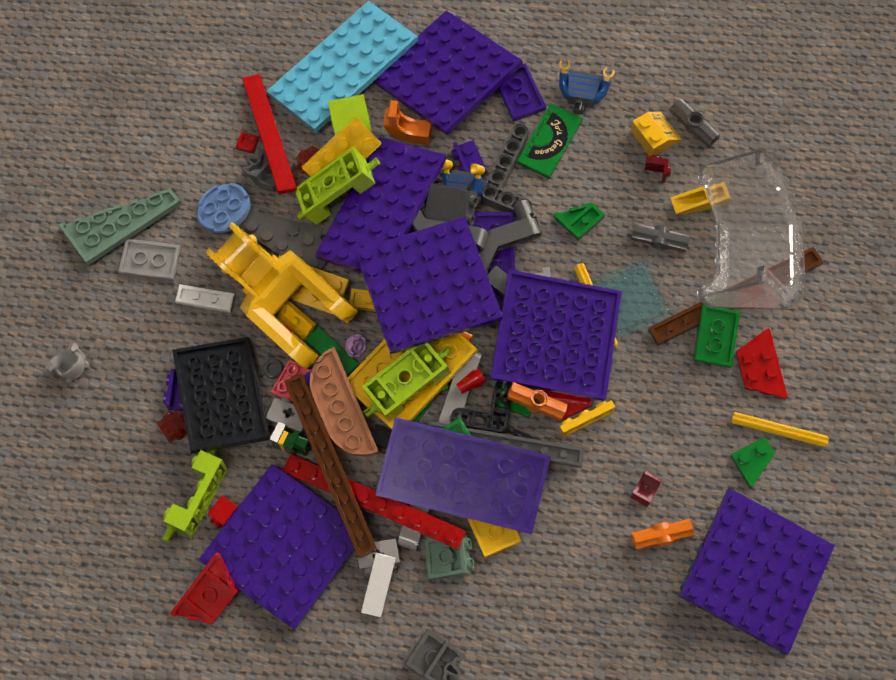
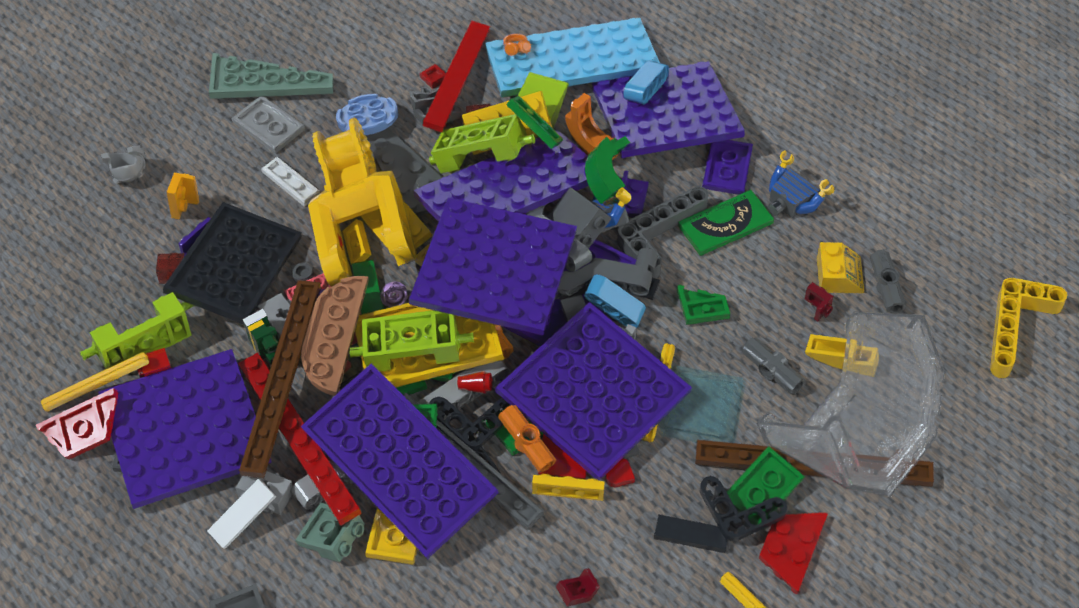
camera: 30 degrees right, 15 degrees down
(134, 356) = (180, 193): none -> light orange bracket
(190, 553) = (94, 381): none -> yellow axle
(296, 86) = (513, 48): none -> orange piece
(368, 145) = (534, 122): none -> green tile
(419, 58) = (646, 82): none -> dark azure beam
(444, 156) = (600, 171): none -> green arch
(522, 255) = (615, 301): none -> dark azure beam
(615, 385) = (620, 474): none -> red tile
(690, 399) = (690, 533): none -> black tile
(713, 371) = (734, 518): none -> black beam
(796, 103) = (1012, 296): none -> yellow beam

